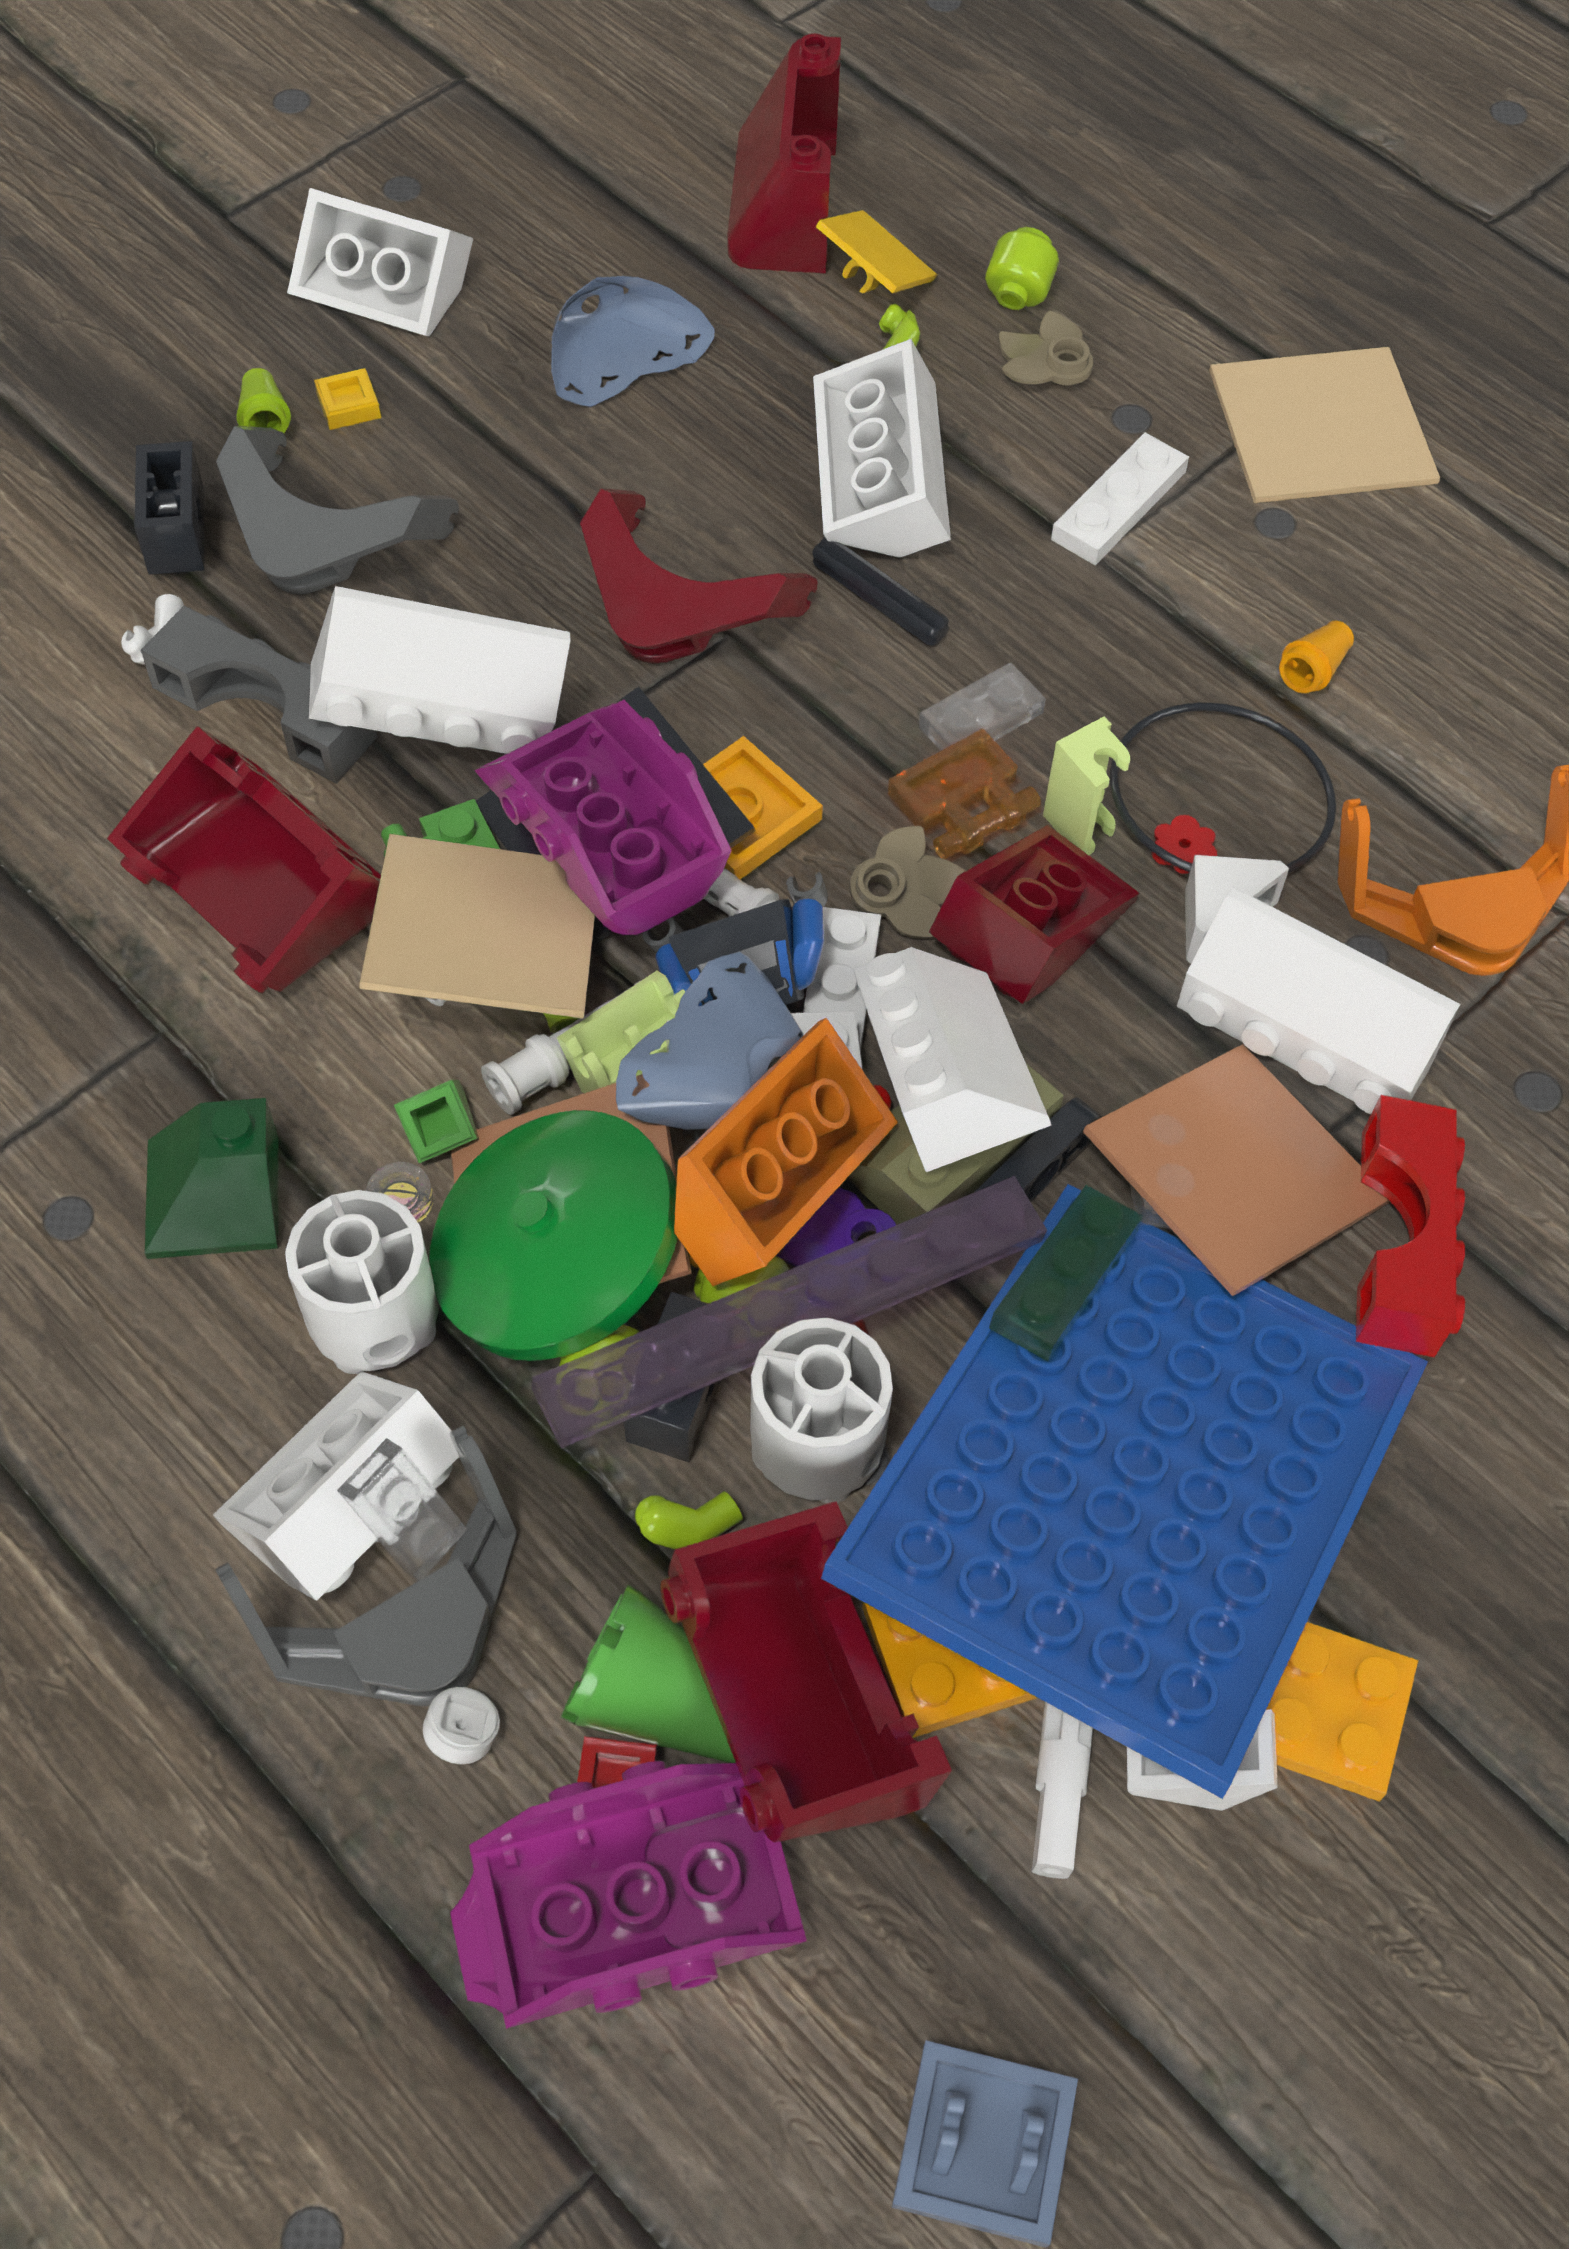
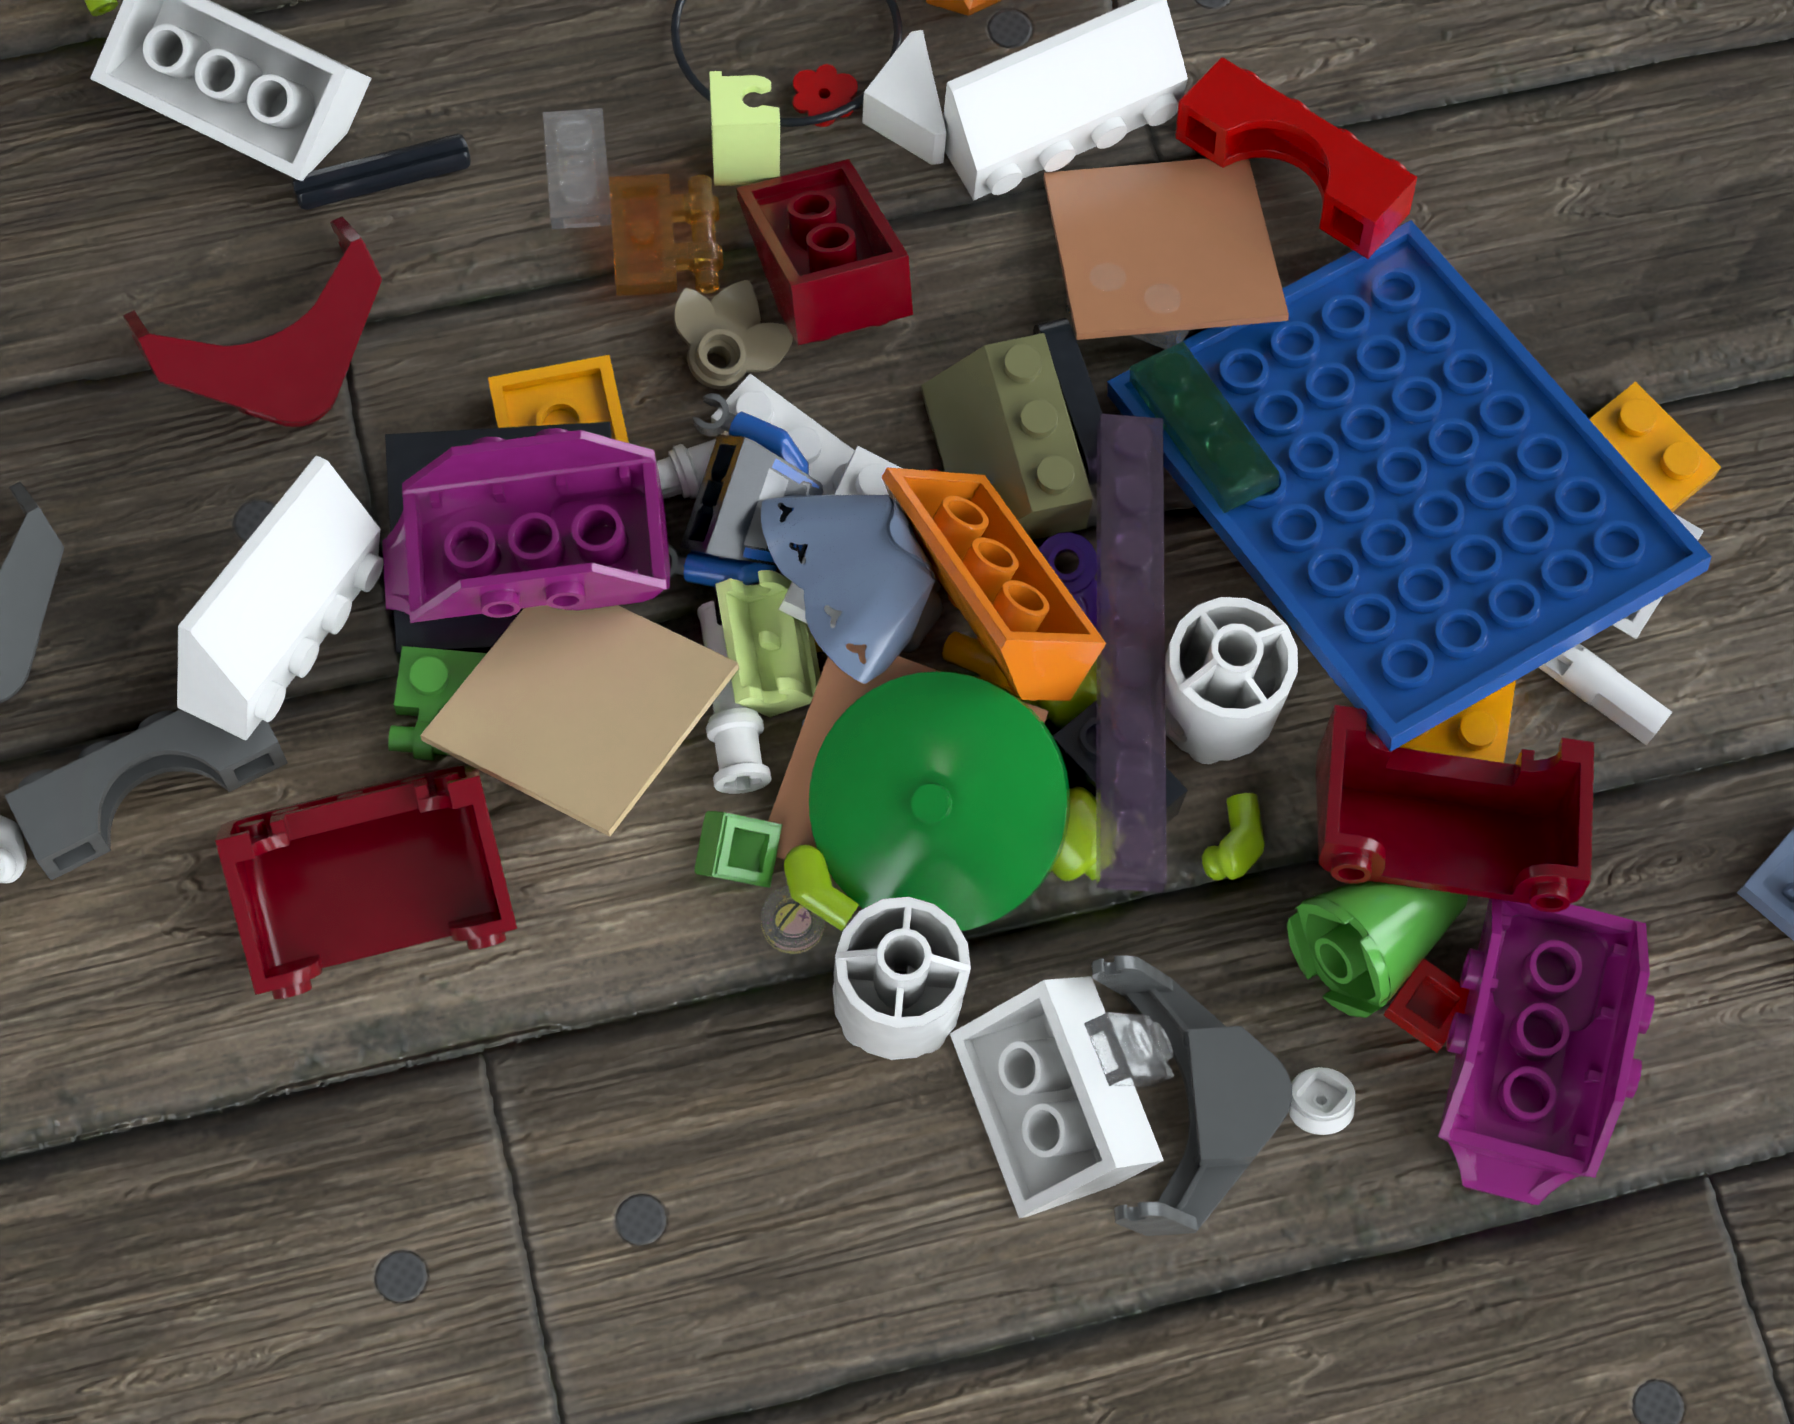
camera: 65 degrees left, 10 degrees up
(213, 1181) = (692, 1072): dark green slope -> none
(428, 1182) = (812, 887): none -> lime arm
(949, 1055) = (959, 397): white slope -> none

